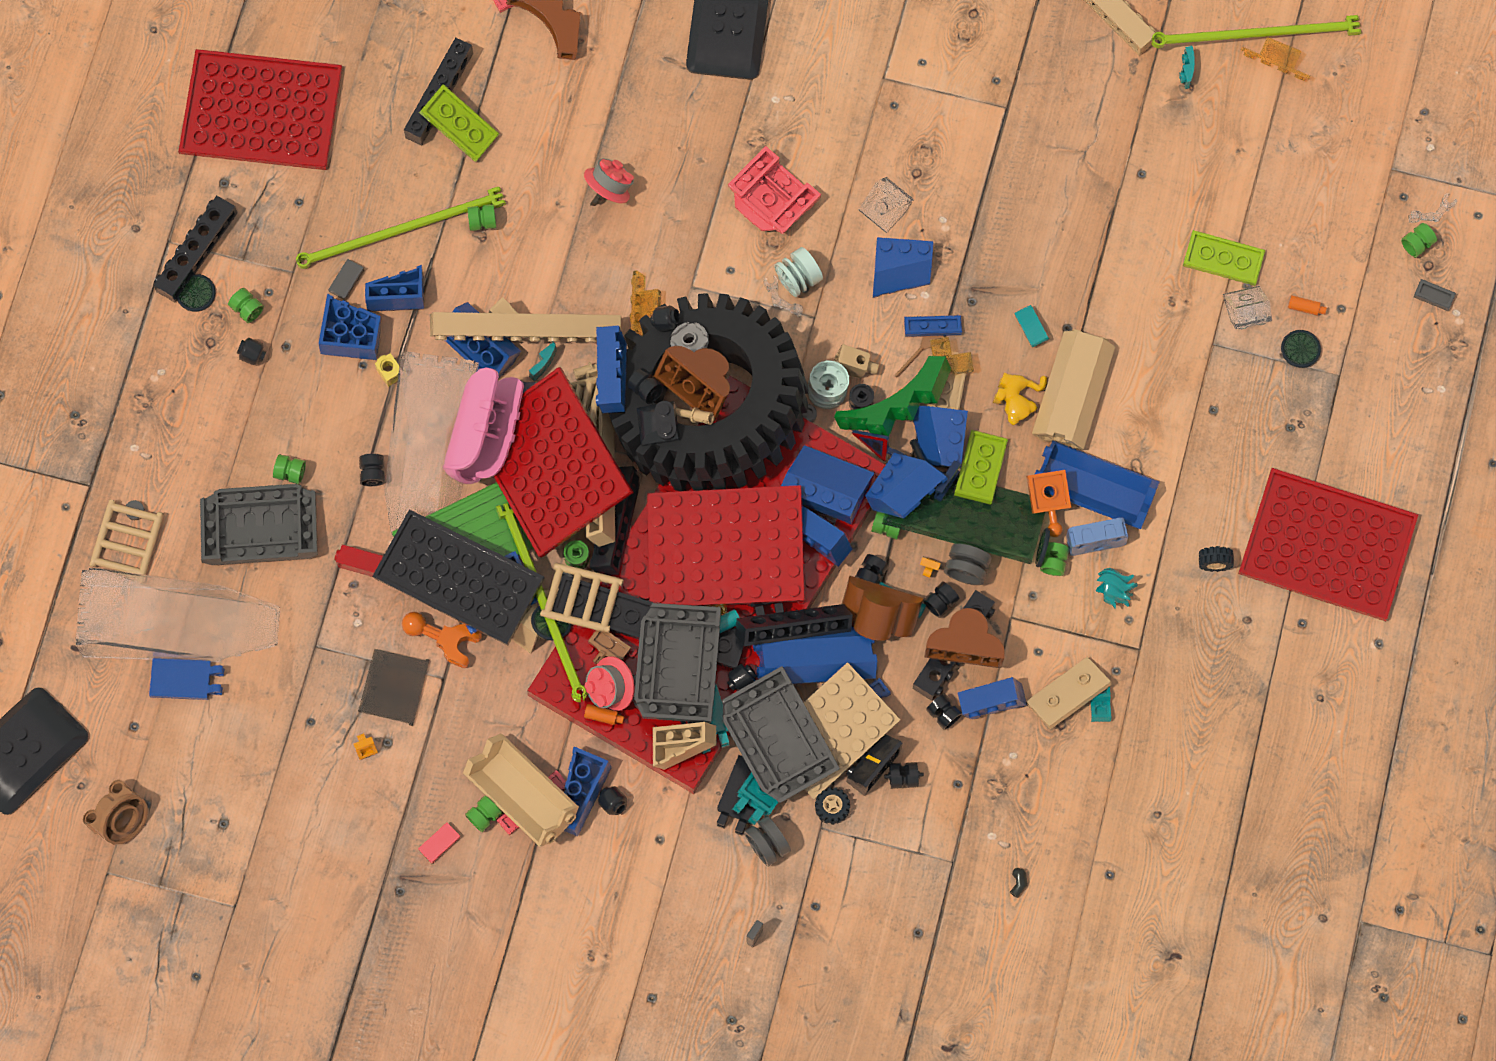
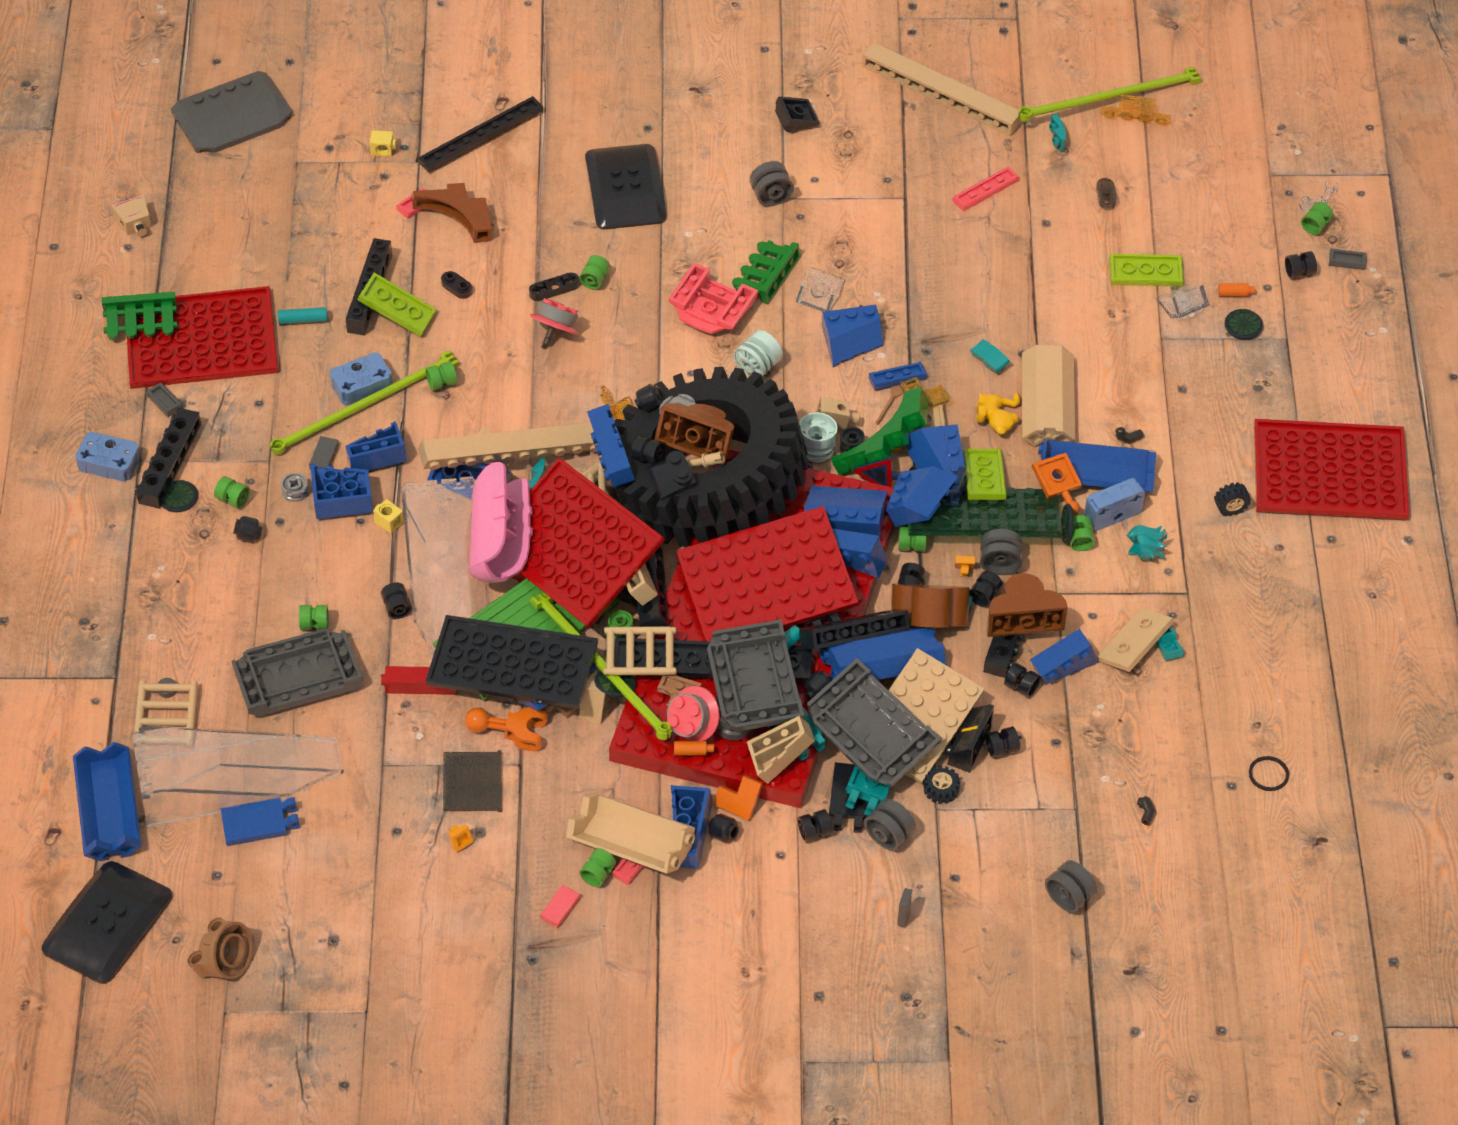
camera: 15 degrees left, 20 degrees down
(49, 625) = (106, 802): none -> blue panel
(137, 239) = (108, 456): none -> medium blue axle
(197, 67) = (143, 305): none -> green fence
(208, 176) = (164, 399): none -> dark grey tile
(308, 312) = (294, 487): none -> light grey wheel
(365, 109) = (302, 315): none -> teal piece
(403, 206) = (360, 378): none -> medium blue axle
(526, 106) = (454, 282): none -> black plate
(616, 128) = (558, 280): none -> black beam
(634, 776) = (741, 802): none -> orange tile
(664, 130) = (594, 272): none -> bright green wheel
(705, 818) = (821, 822): none -> black wheel
(848, 172) = (777, 272): none -> green fence
(872, 65) = (771, 183): none -> dark grey wheel
(917, 951) = (1071, 886): none -> dark grey wheel
(1092, 117) = (985, 188): none -> coral tile
(1138, 455) = (1128, 437): none -> pearl dark grey arm
(1154, 854) = (1272, 759): none -> black piece
(1213, 156) = (1106, 193): none -> clear smoke plate
(1382, 293) = (1300, 264): none -> black wheel

